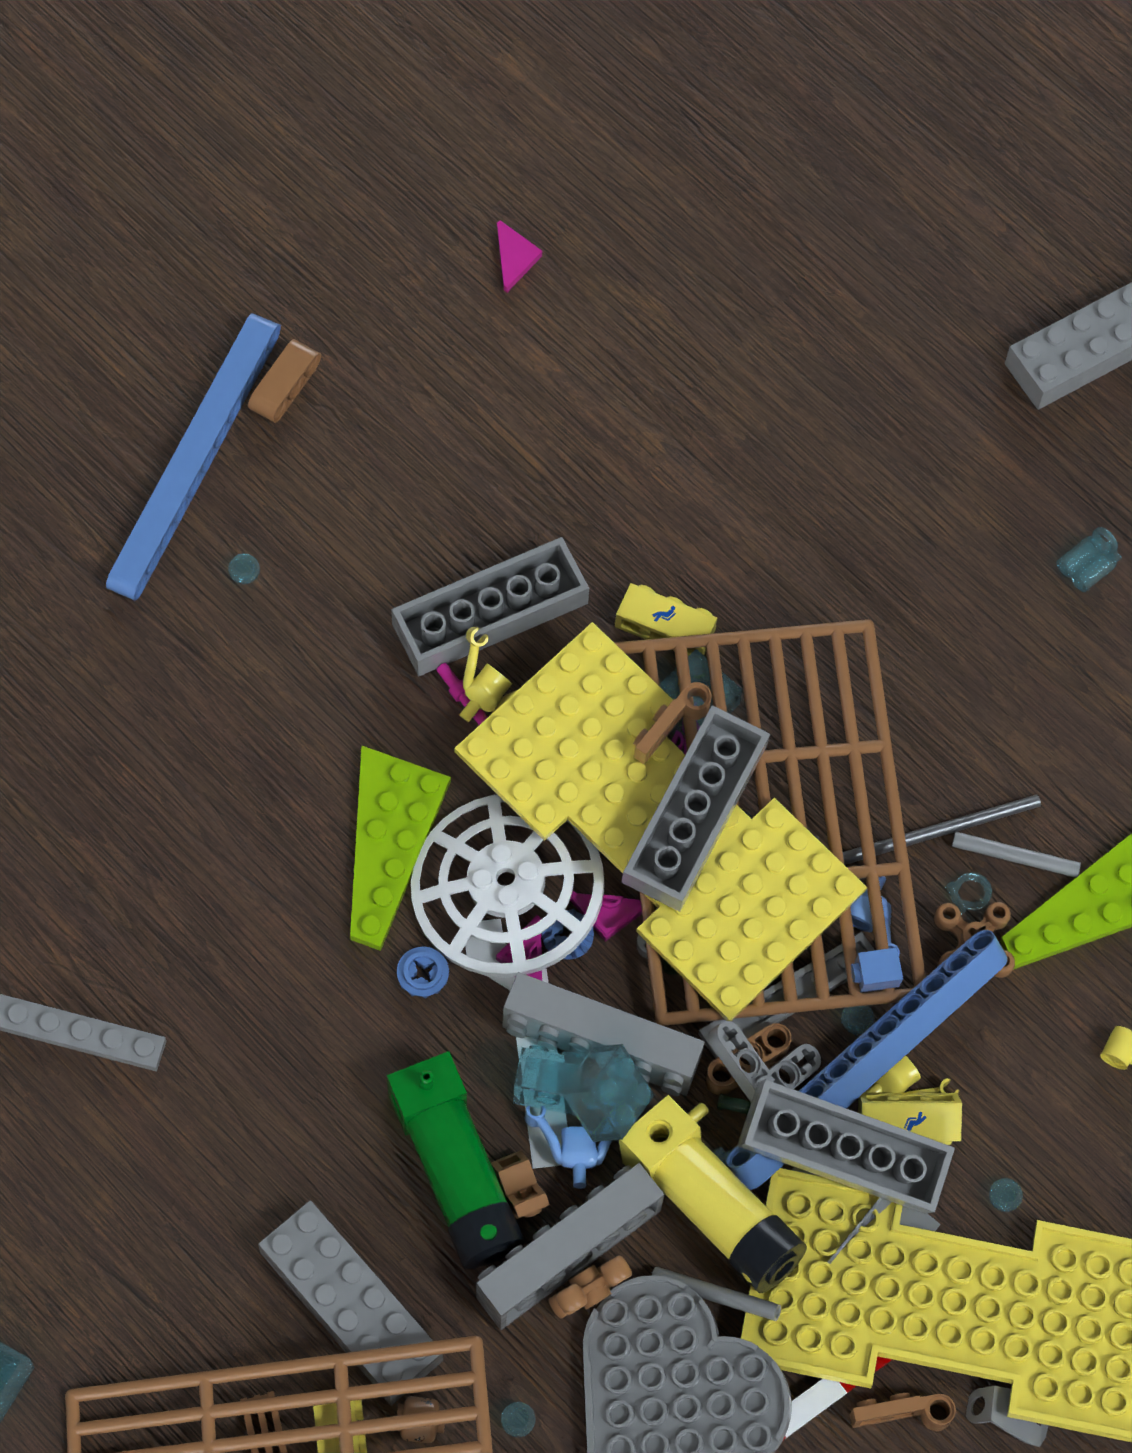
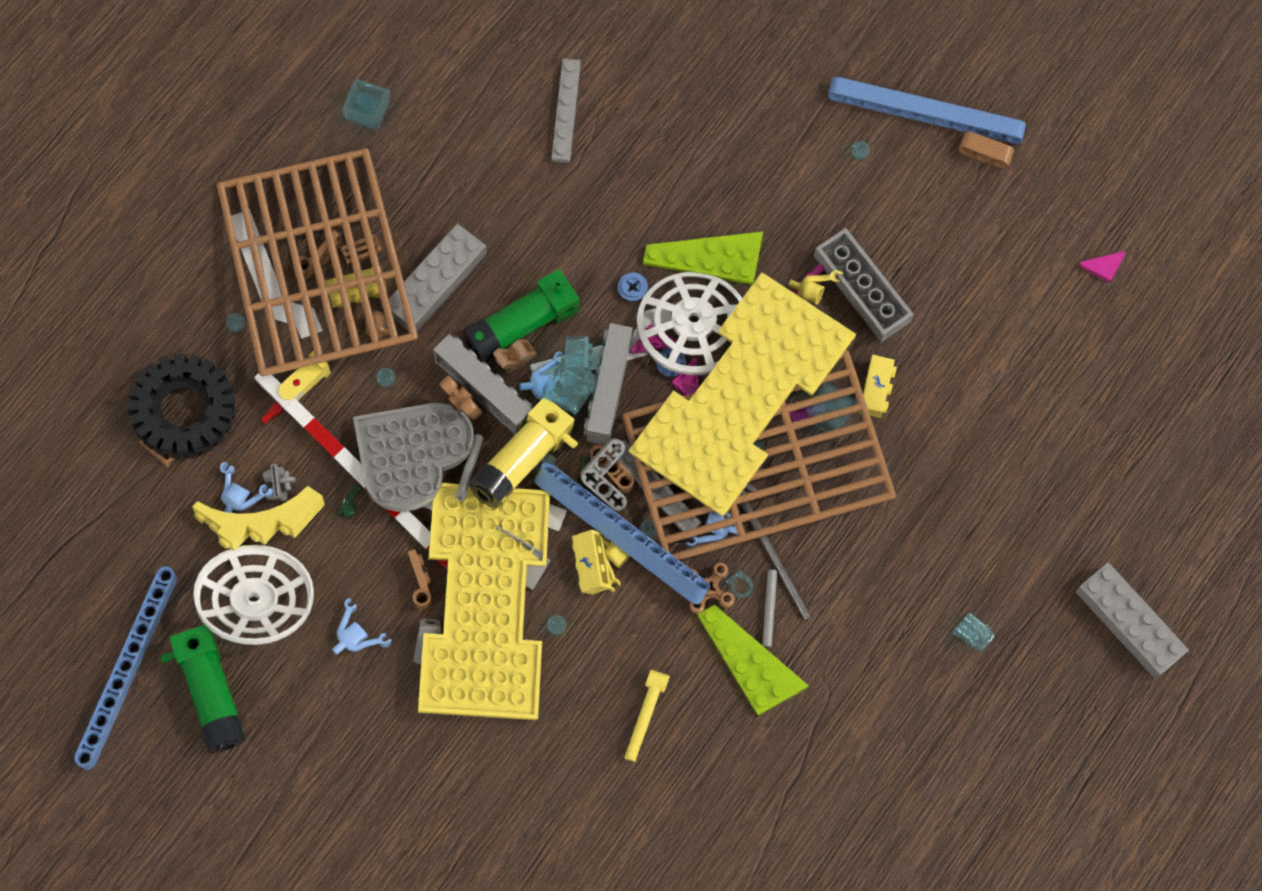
camera: 80 degrees right, 5 degrees up
(668, 717) = (799, 382): medium nougat plate -> none
(695, 808) = (746, 404): light grey brick -> none
(846, 1146) = (560, 520): light grey brick -> none
(877, 970) = (673, 527): medium blue brick -> none

